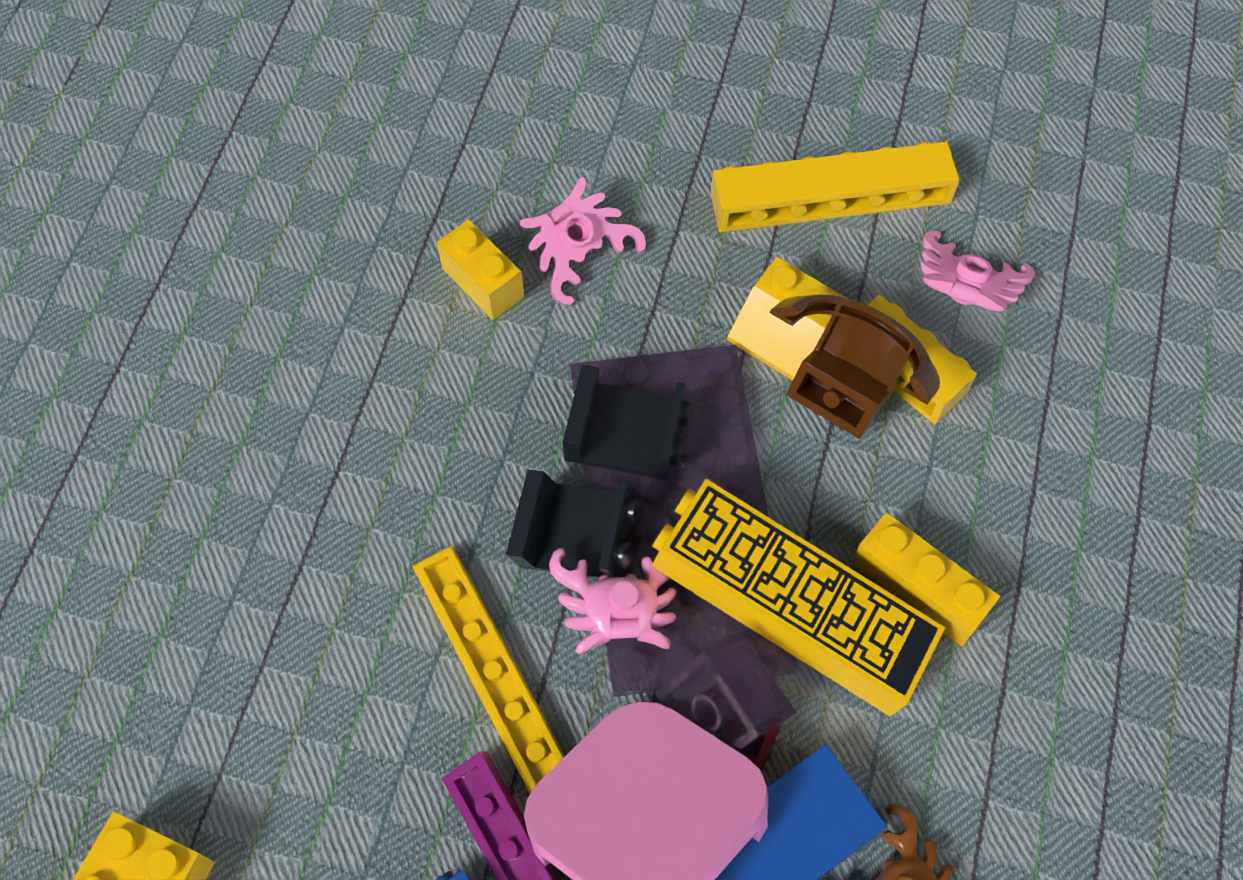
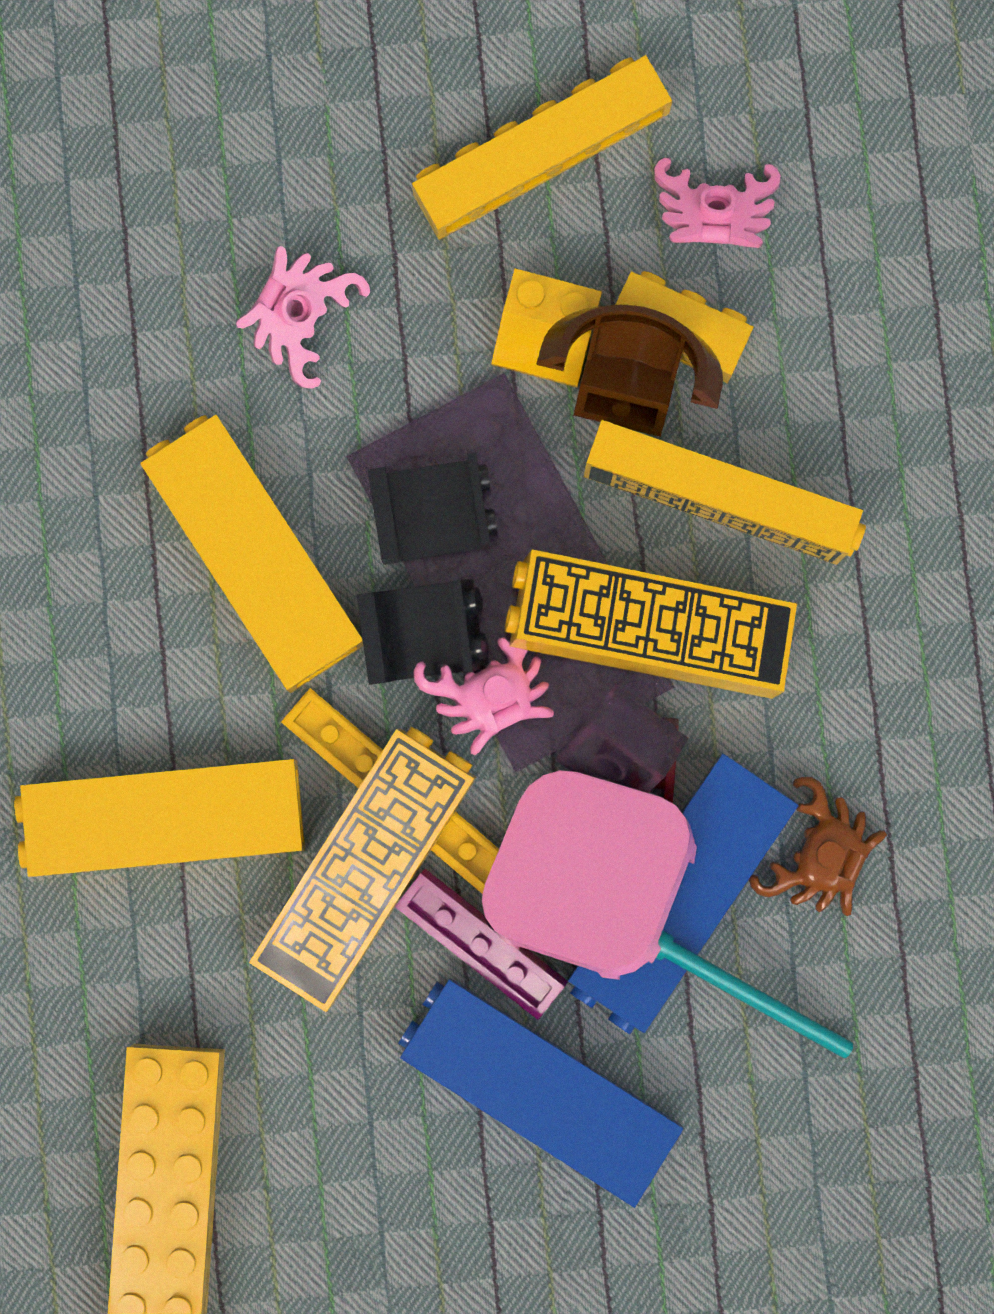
camera: 20 degrees left, 20 degrees up
(262, 610) = (160, 818): none -> yellow brick
(424, 728) = (364, 867): none -> brick
(452, 416) = (251, 552): none -> yellow brick
(481, 269) = (214, 385): yellow brick -> none
(877, 479) = (724, 493): none -> yellow brick
(924, 578) = (764, 559): yellow brick -> none

